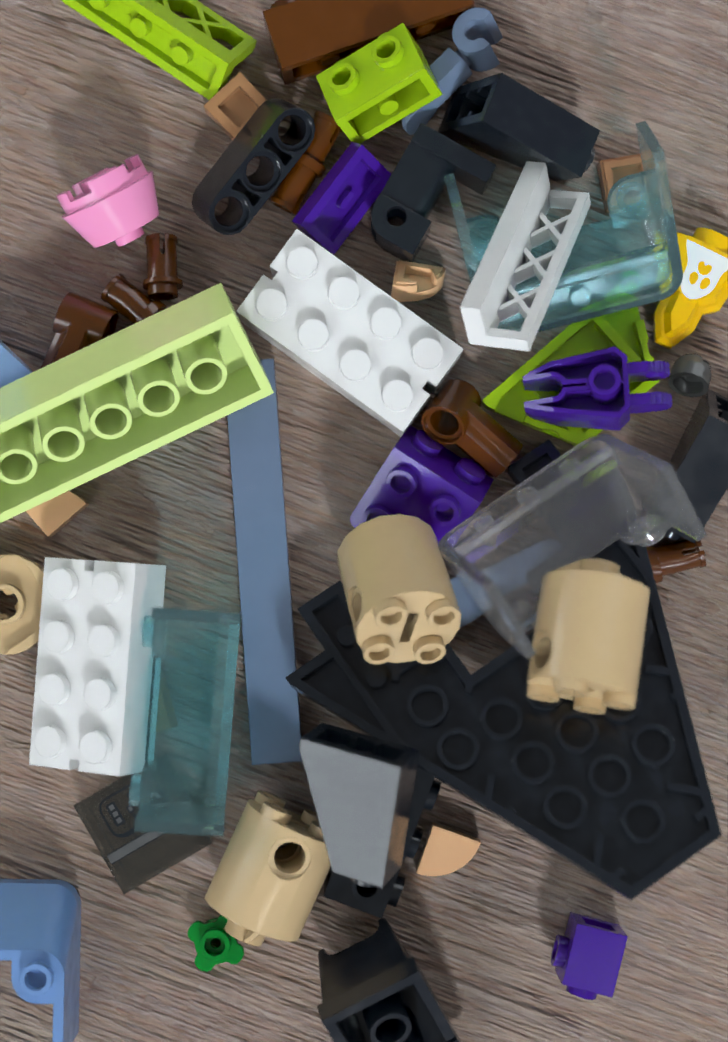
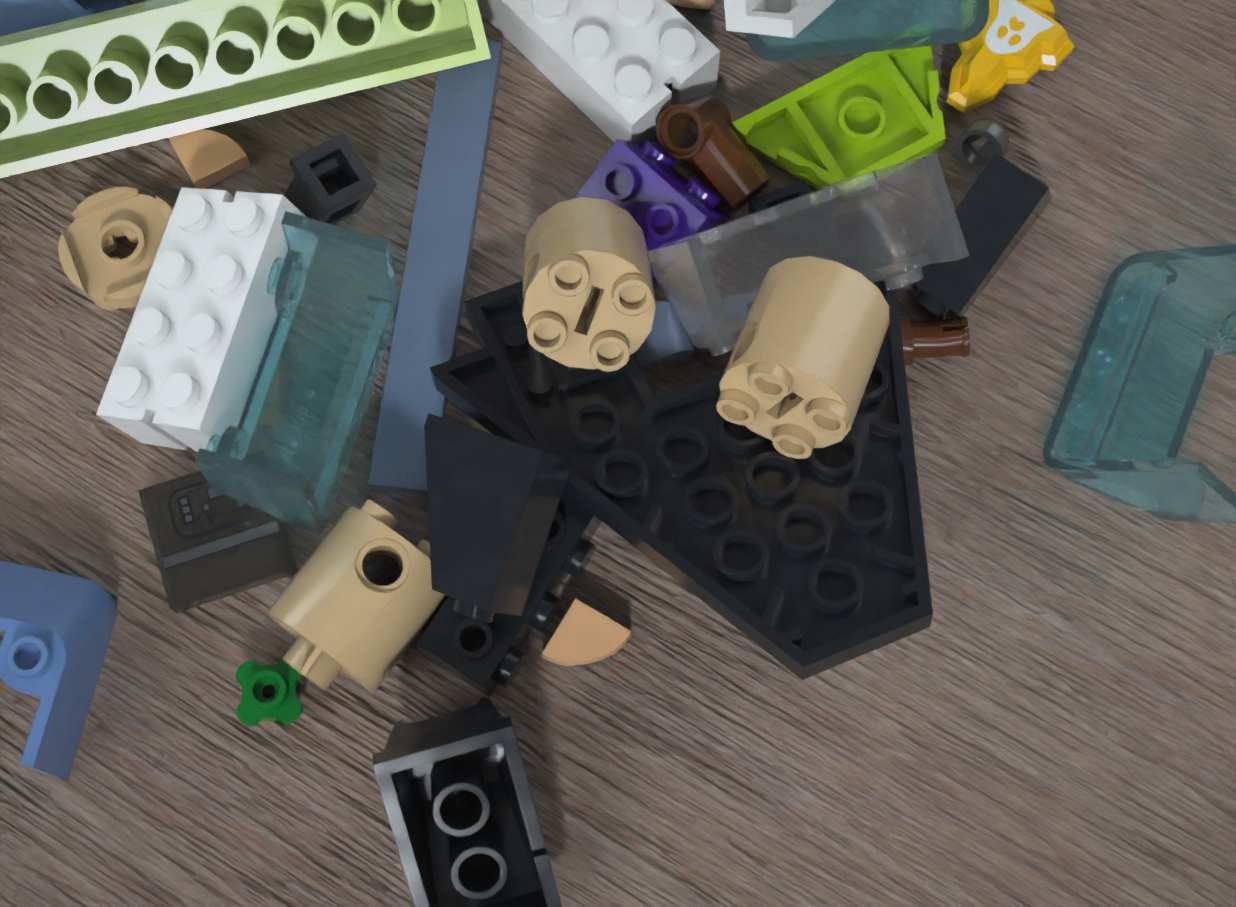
camera: 15 degrees right, 15 degrees down
(163, 527) = (330, 181): none -> black brick
(589, 956) = (741, 799): dark purple brick -> none
(595, 390) = (865, 117): dark purple hinge -> none

